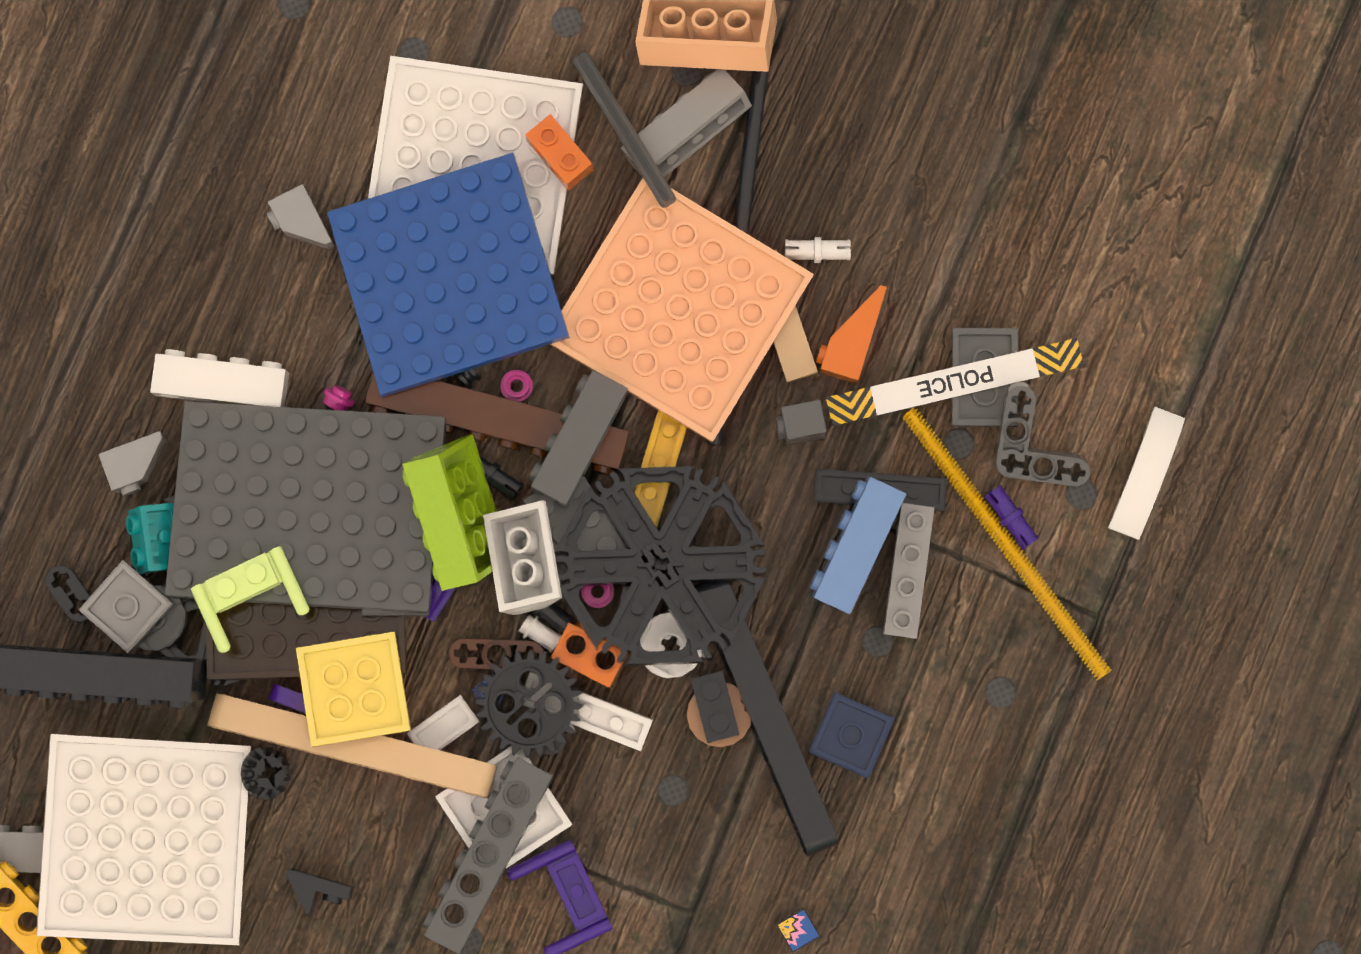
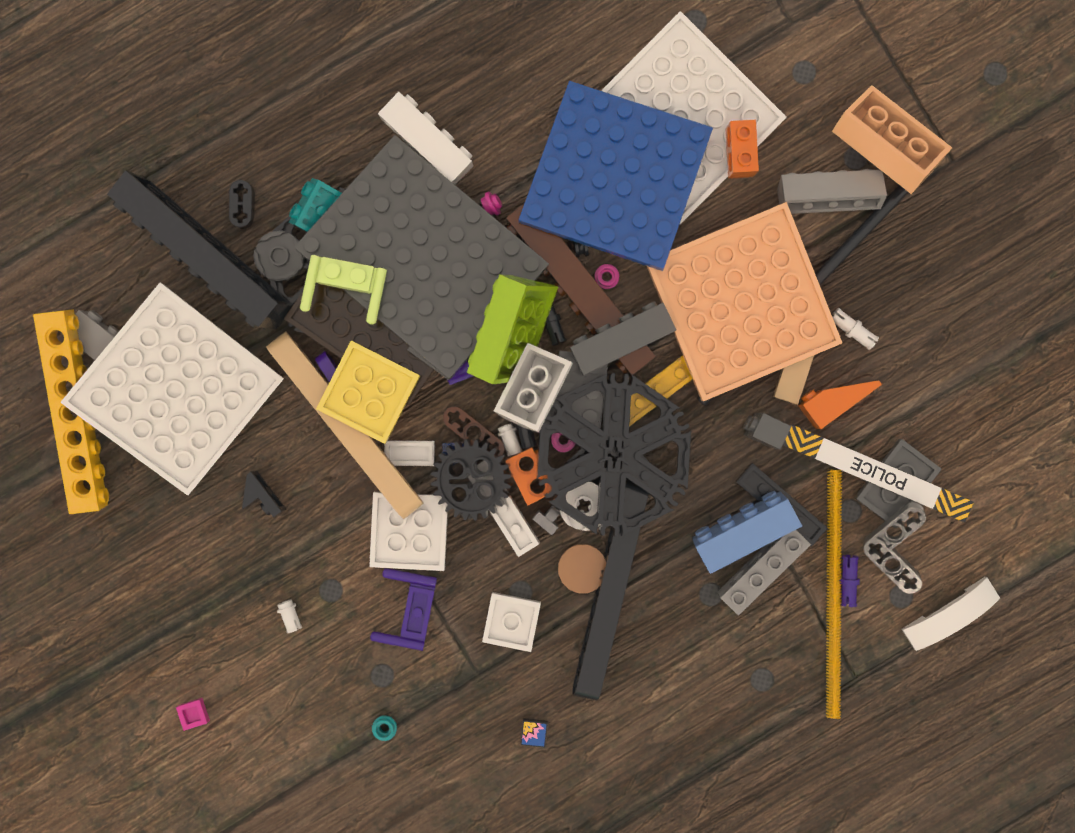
camera: 30 degrees right, 5 degrees up
(126, 606) = (265, 236): light grey plate -> none
(132, 463) = (335, 150): light grey slope -> none
(254, 765) = (276, 392): black gear -> none
(298, 217) = (548, 72): light grey slope -> none
(456, 935) = (322, 586): dark grey brick -> none
(624, 130) = (792, 167): dark grey axle -> none
(642, 690) = (546, 520): none -> flat silver tile
(685, 826) = (511, 621): none -> white plate
(715, 707) = (583, 563): black plate -> none
(851, 735) = (652, 640): dark blue tile -> none

